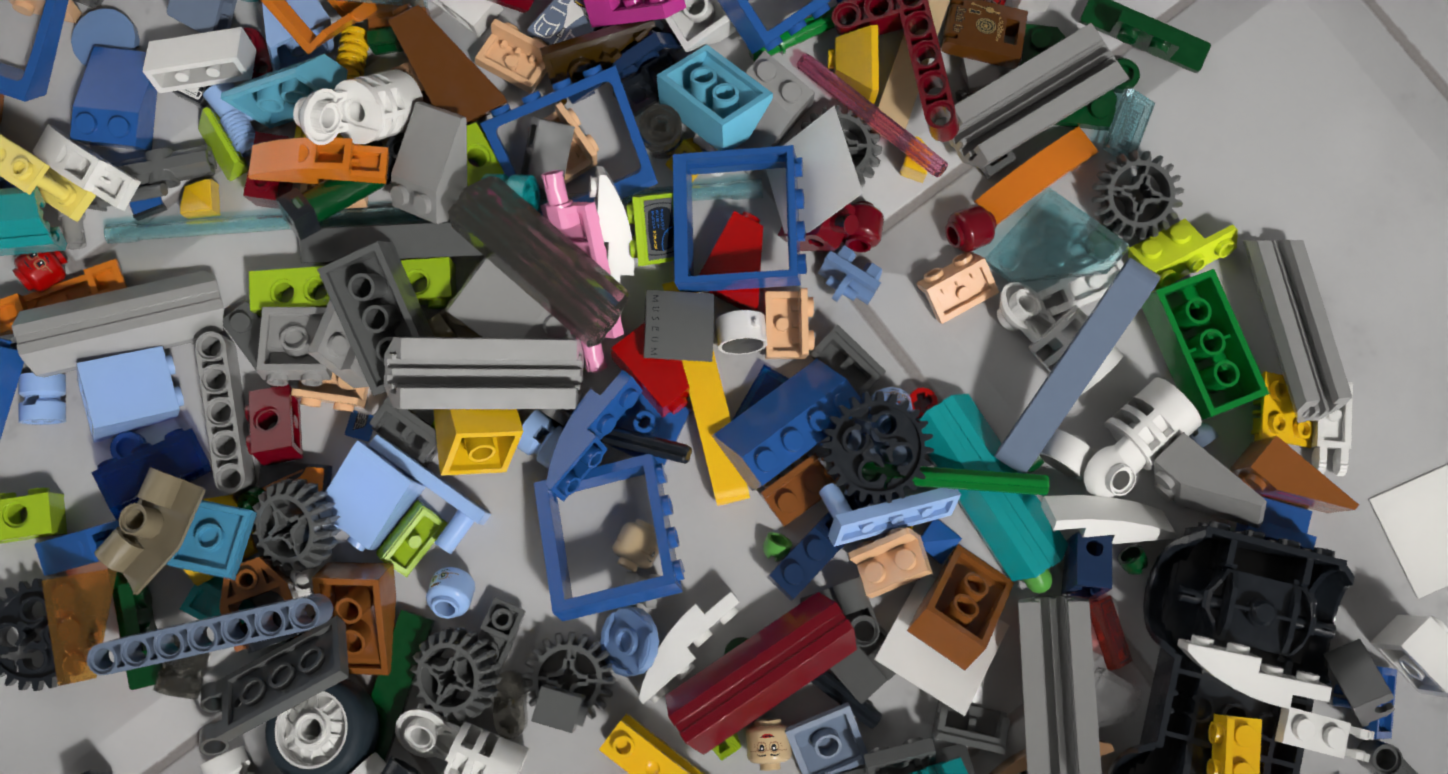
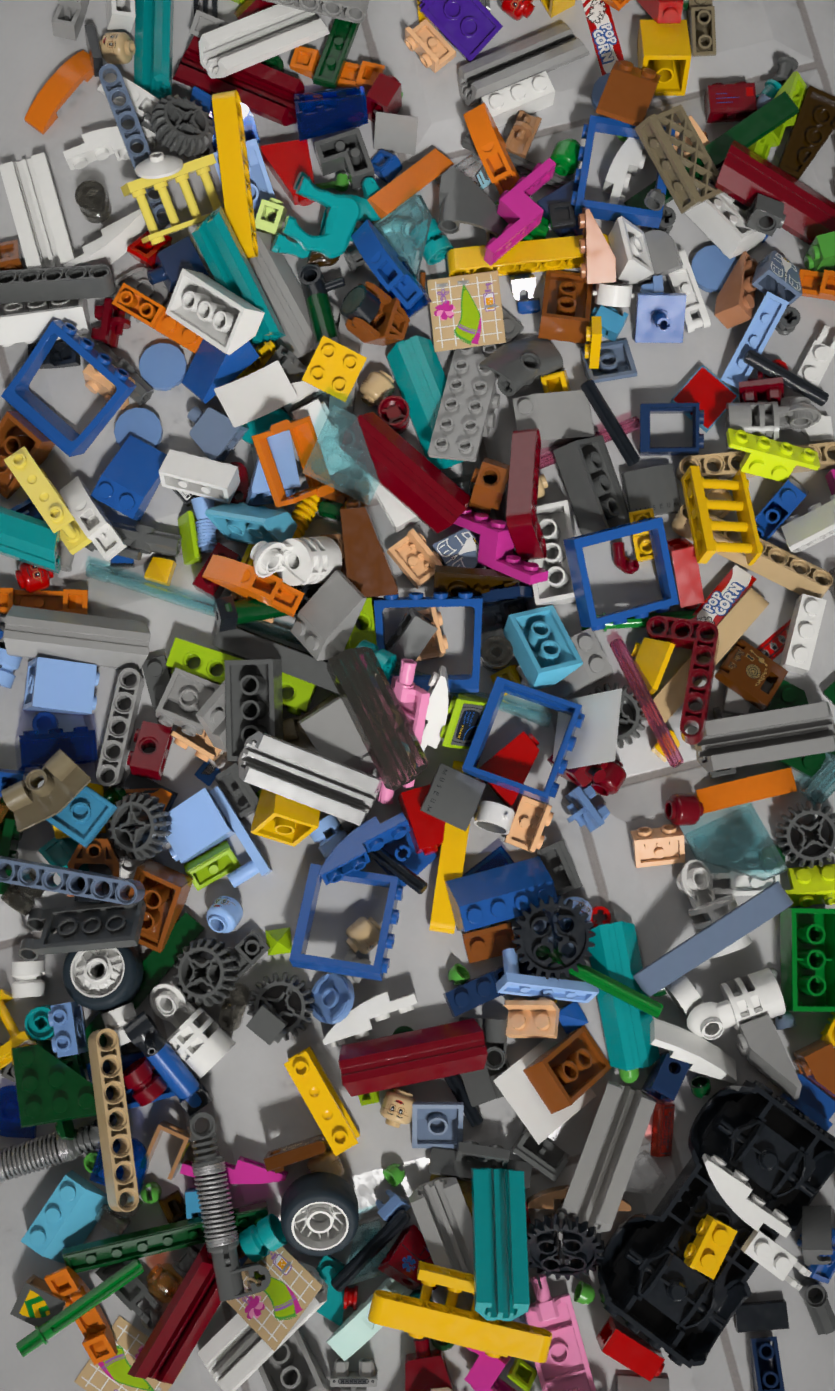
camera: 20 degrees right, 0 degrees up
(533, 597) = (279, 941): none -> lime slope

